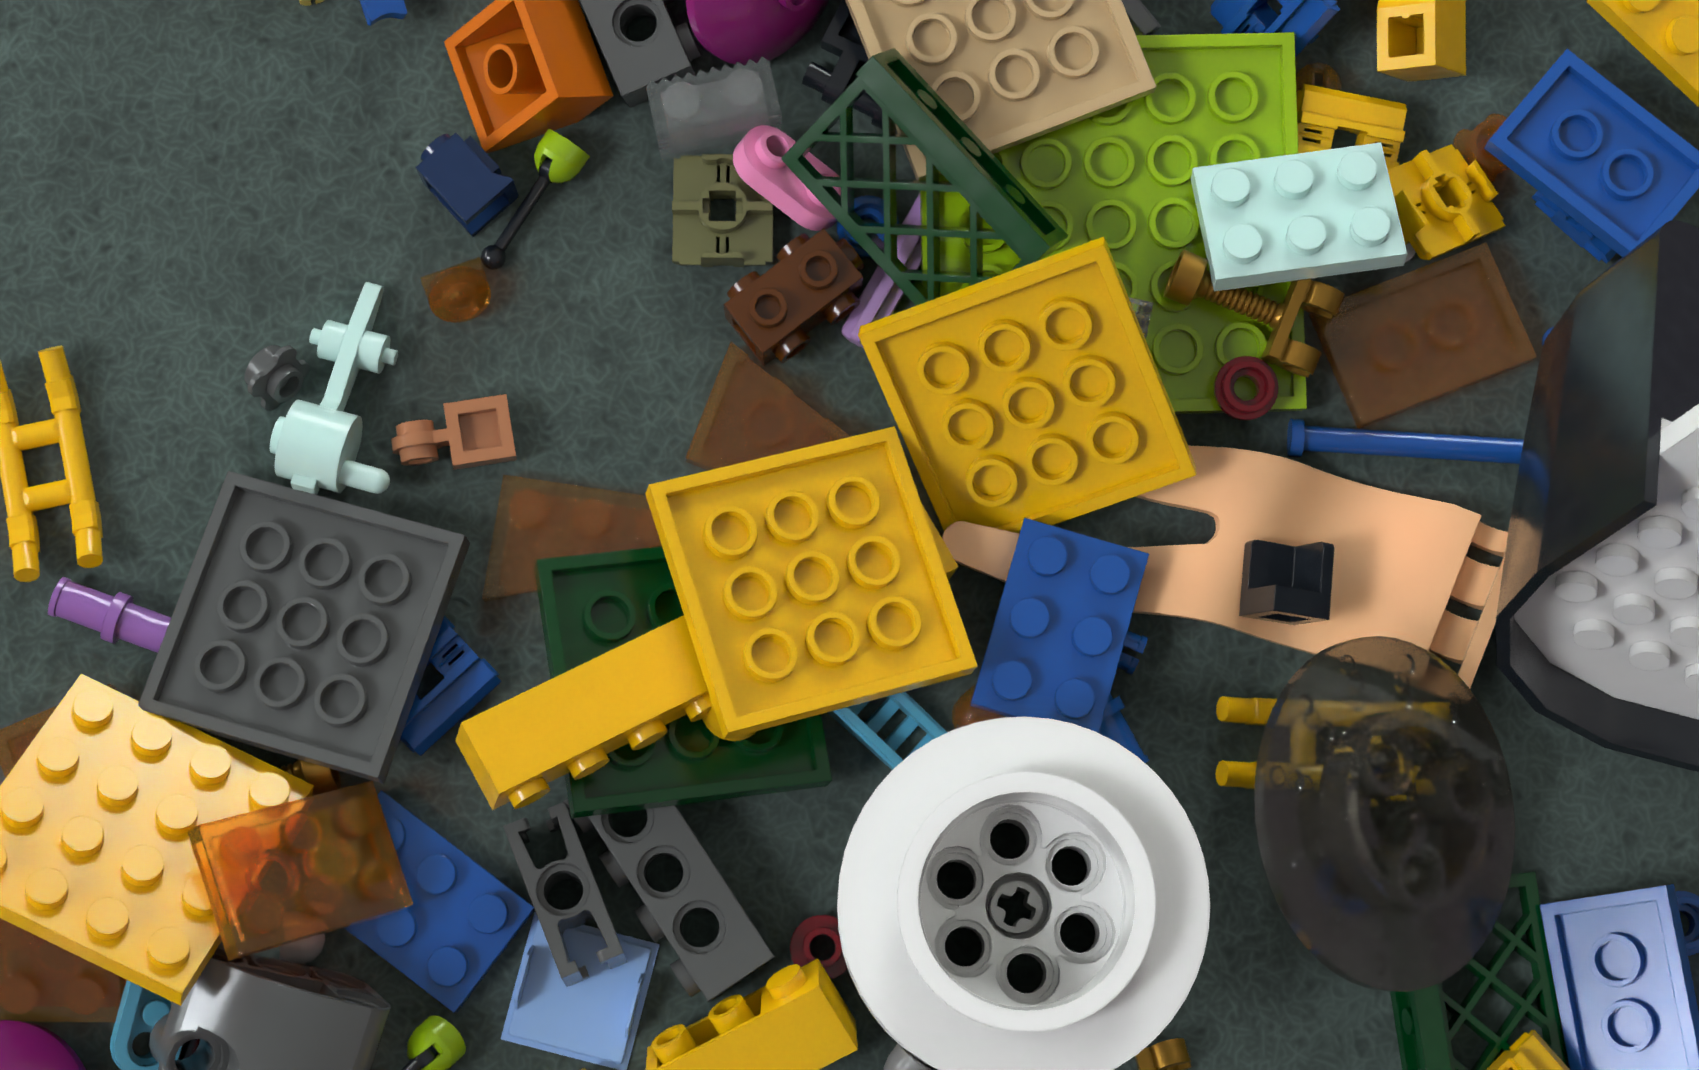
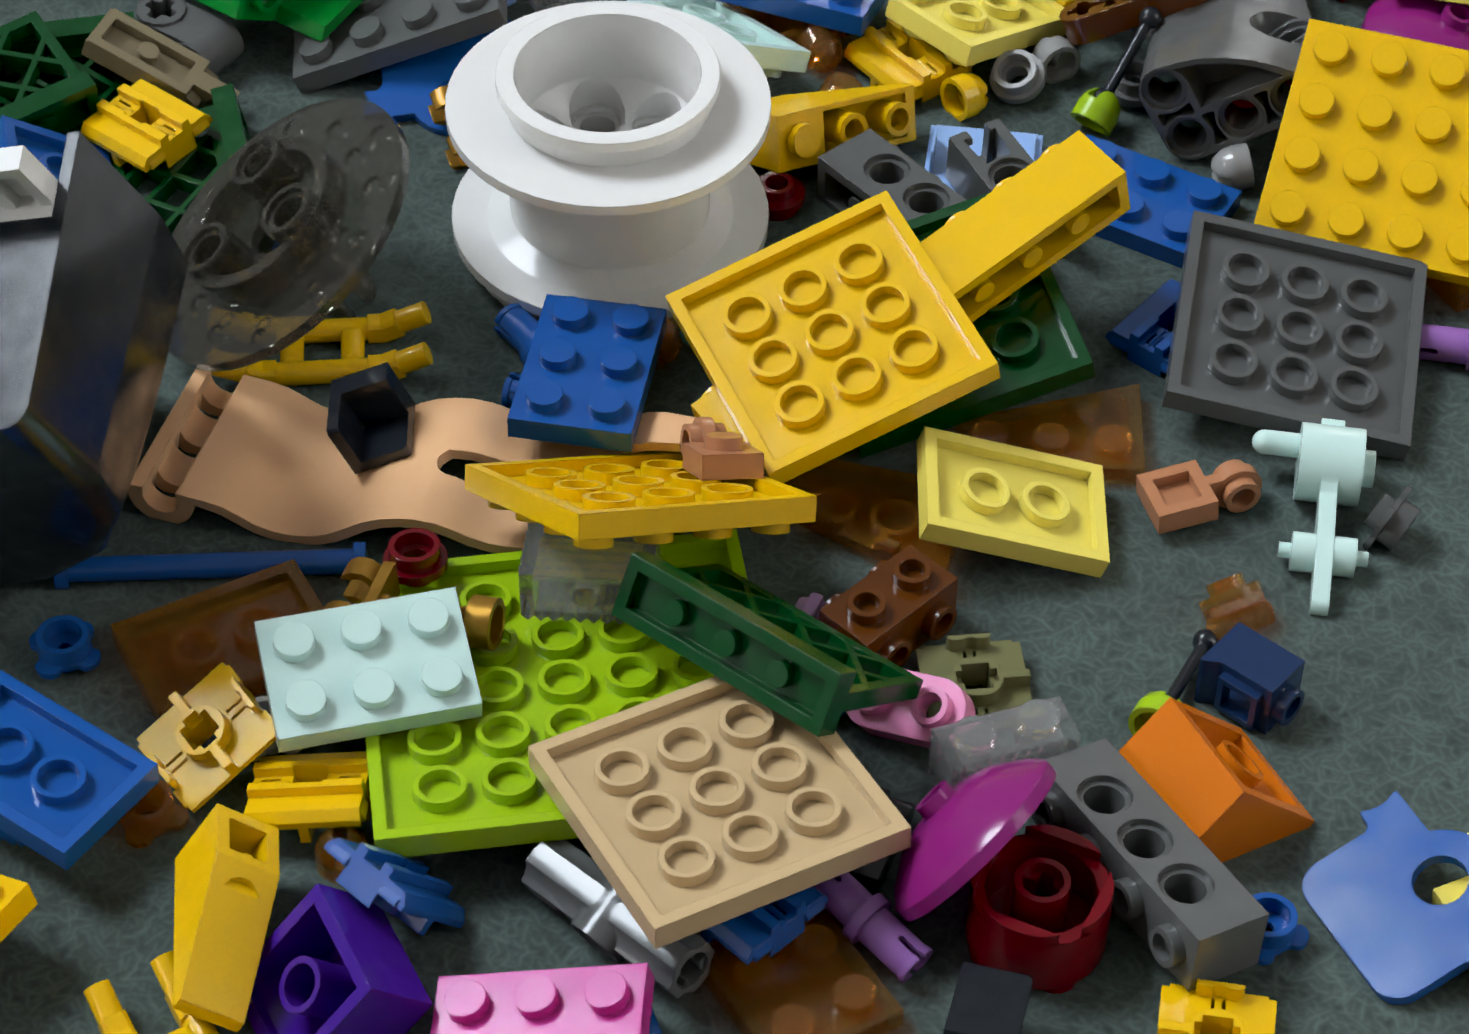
camera: 175 degrees right, 35 degrees down
(299, 869) = (1242, 142): clear orange plate -> none
(648, 413) = (1012, 502): none -> light yellow plate
(939, 449) = (717, 454): none -> nougat plate

